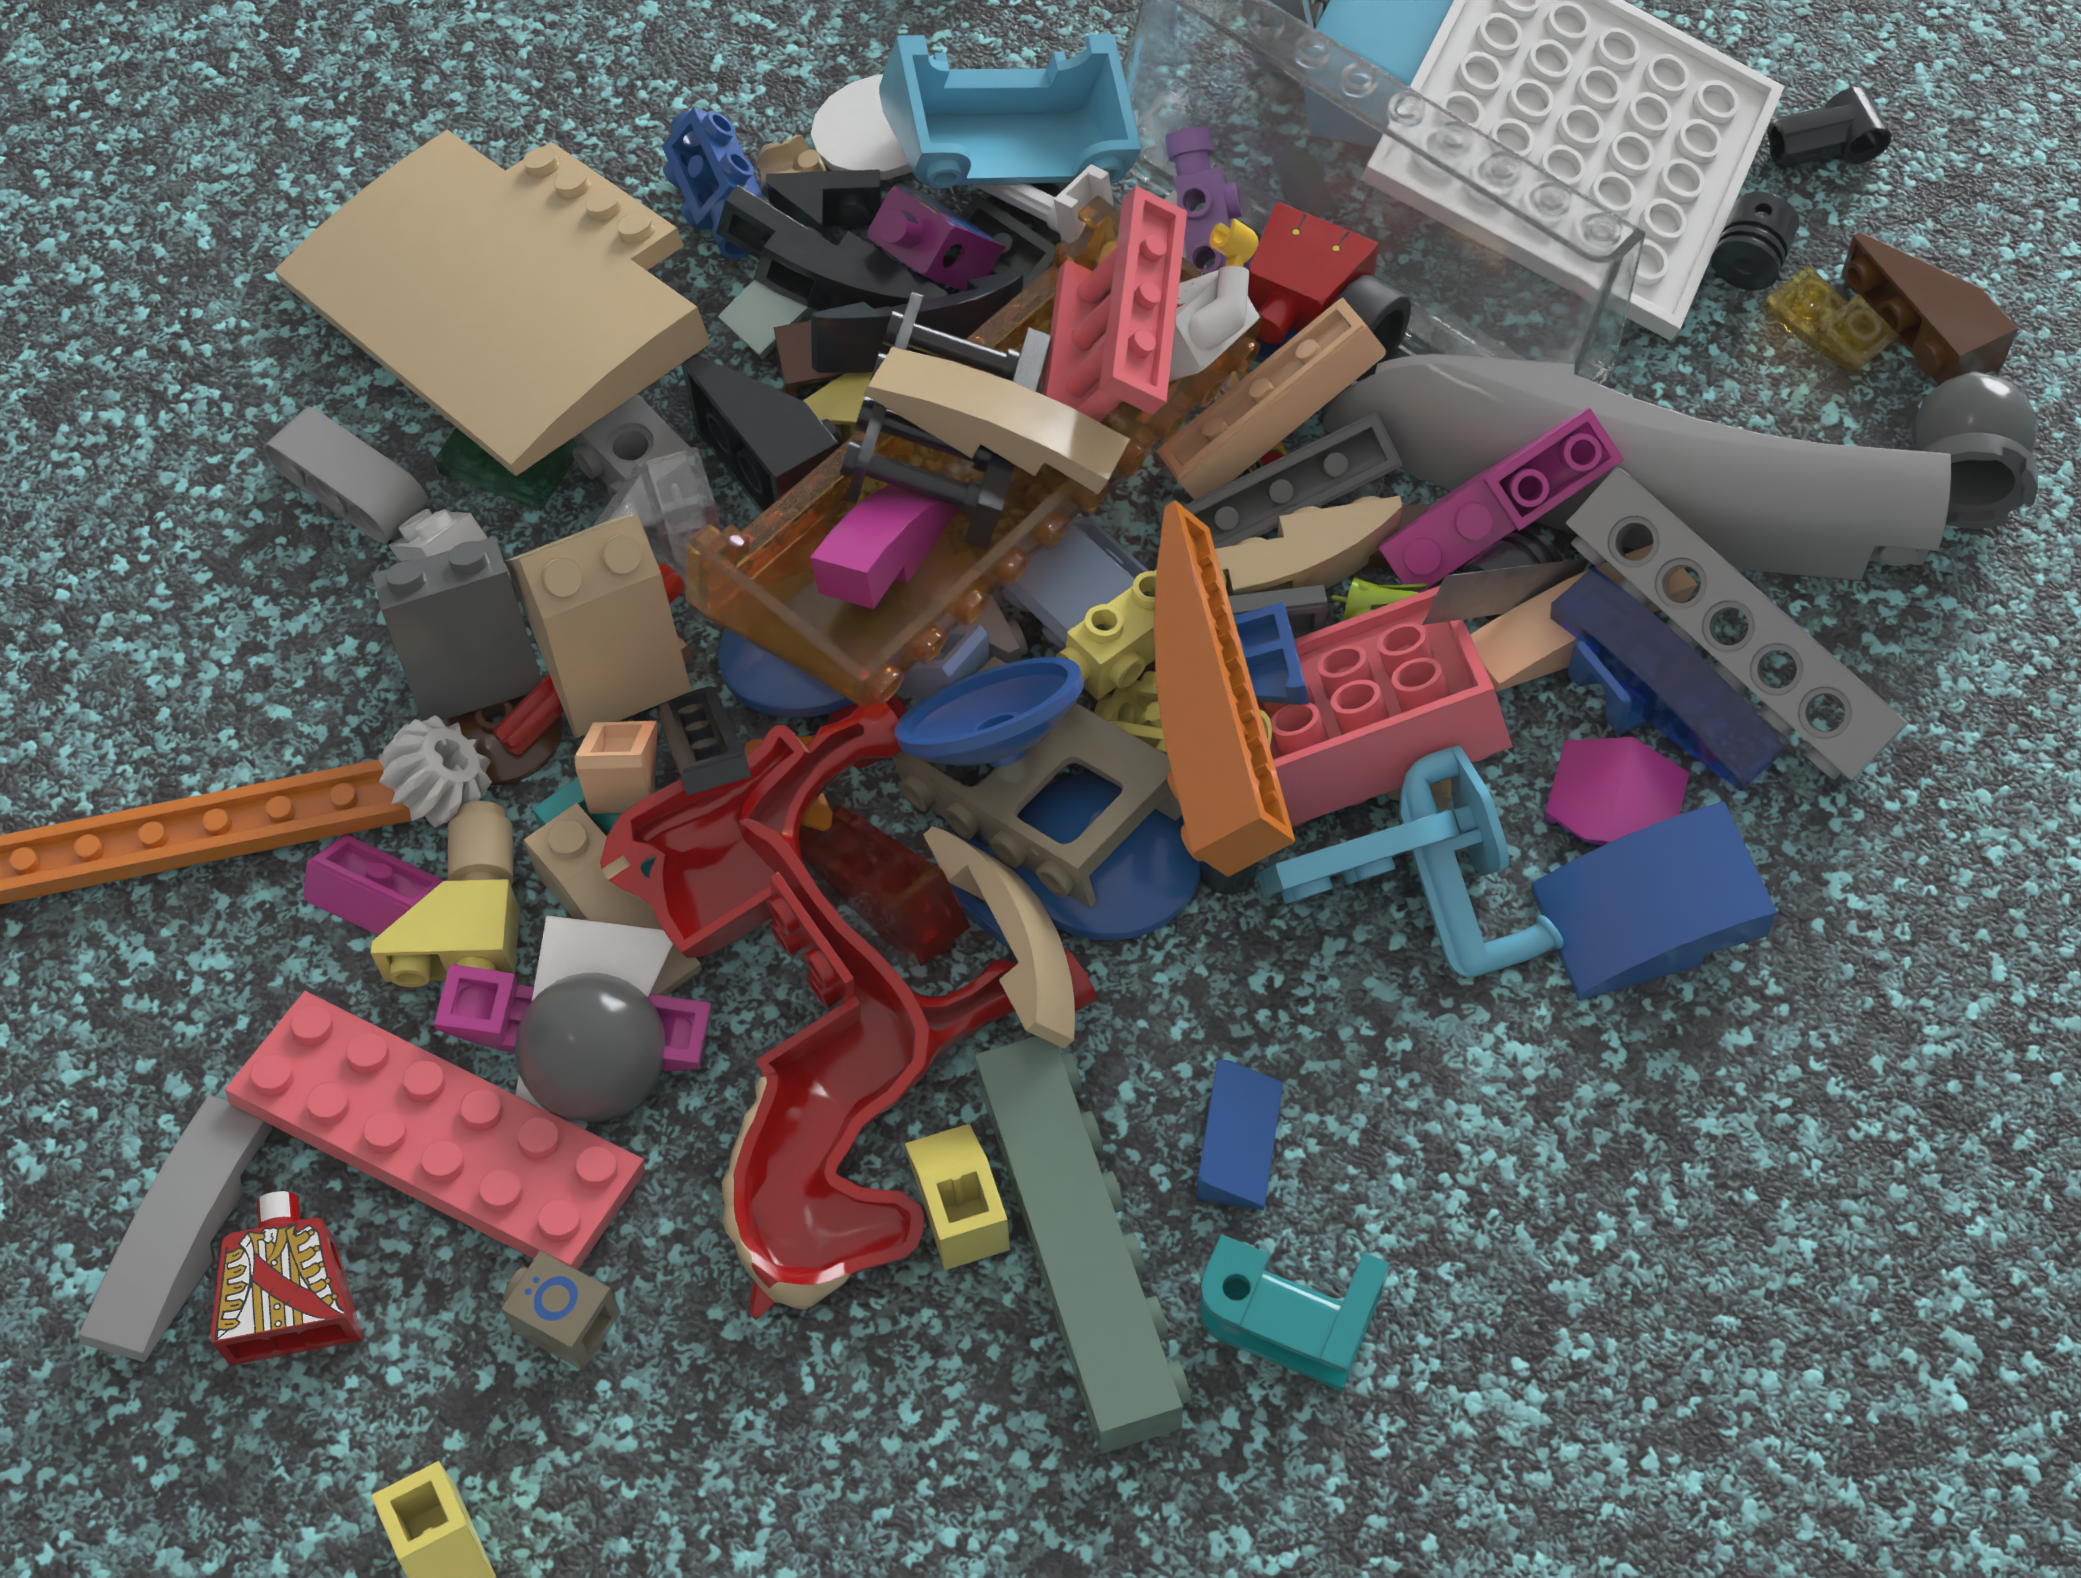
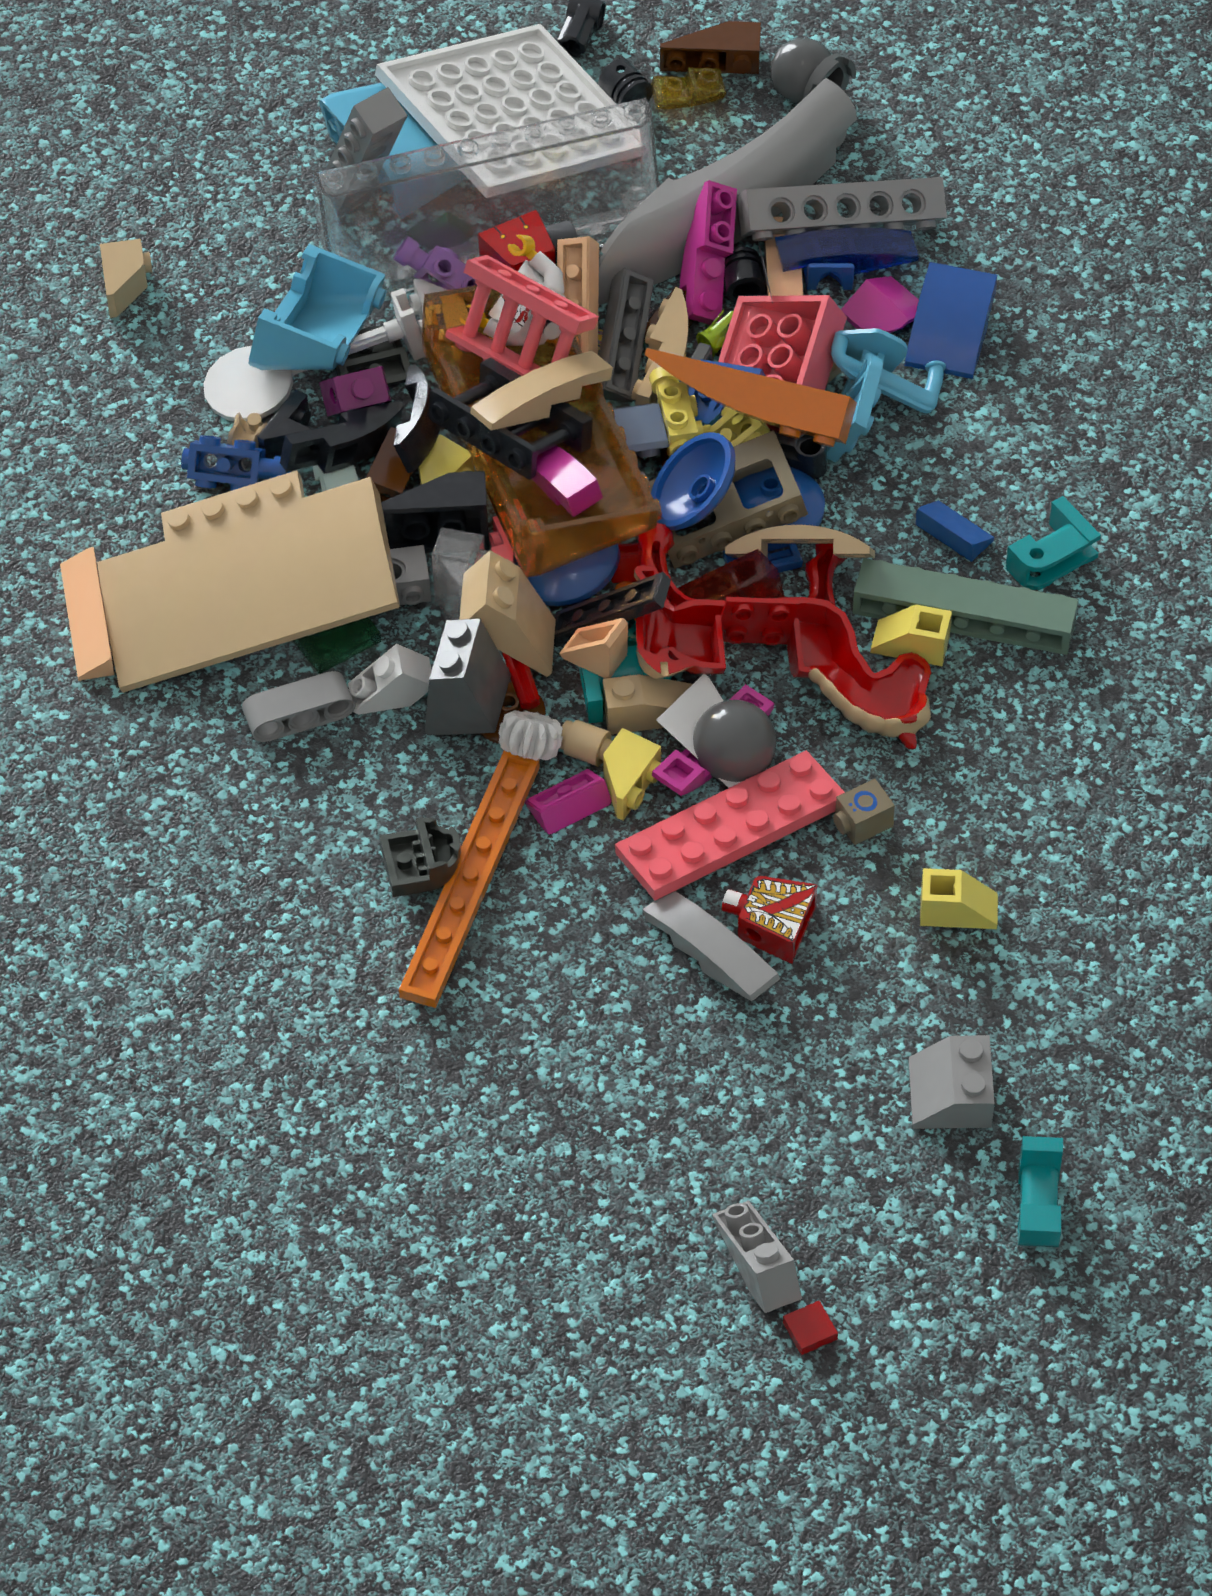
camera: 60 degrees left, 5 degrees down
(138, 754) = (420, 857): none -> pearl dark grey slope
(312, 210) = (86, 616): none -> light nougat slope

